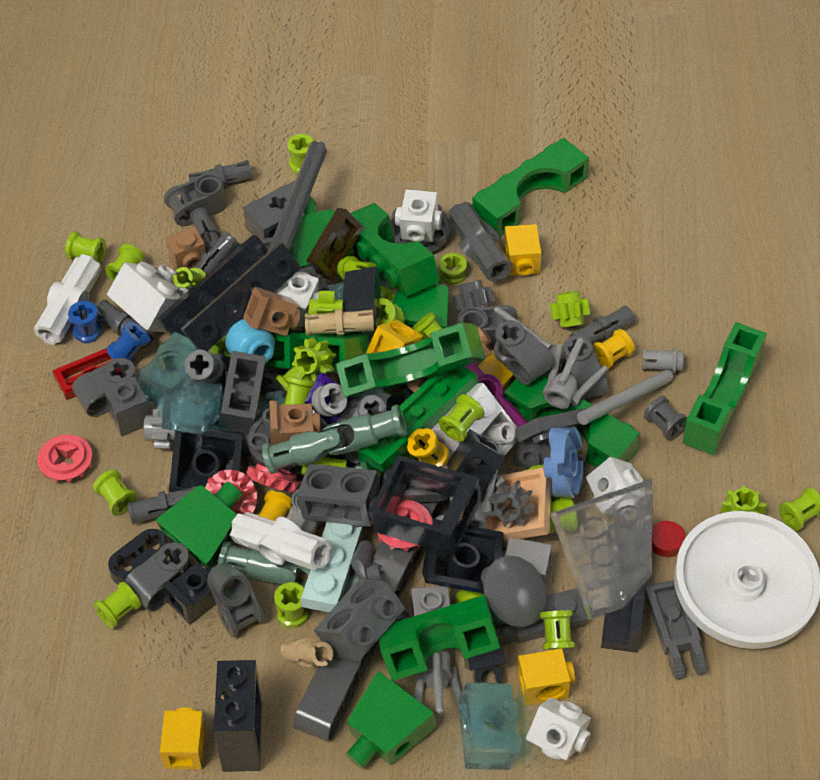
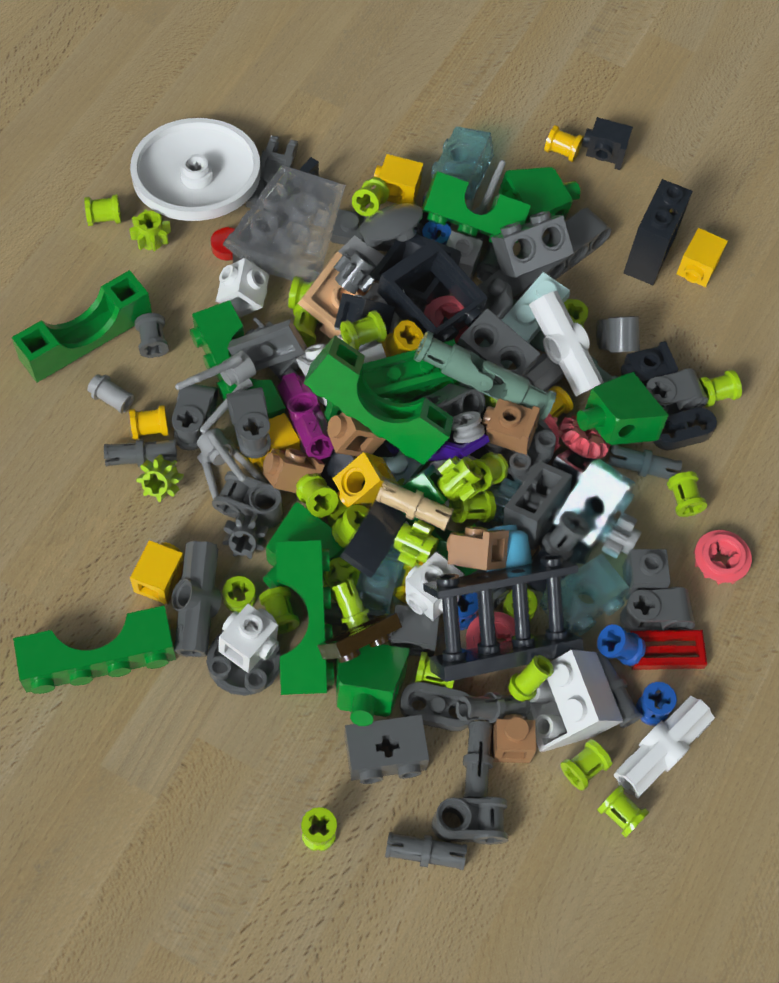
camera: 160 degrees left, 10 degrees up
(299, 195) = (376, 701): dark grey axle -> none
(306, 652) = (580, 265): tan pin -> none
(559, 729) = (413, 136): white brick -> none
(563, 462) = (286, 291): medium blue plate -> none
(624, 397) = (177, 356): light grey bar -> none

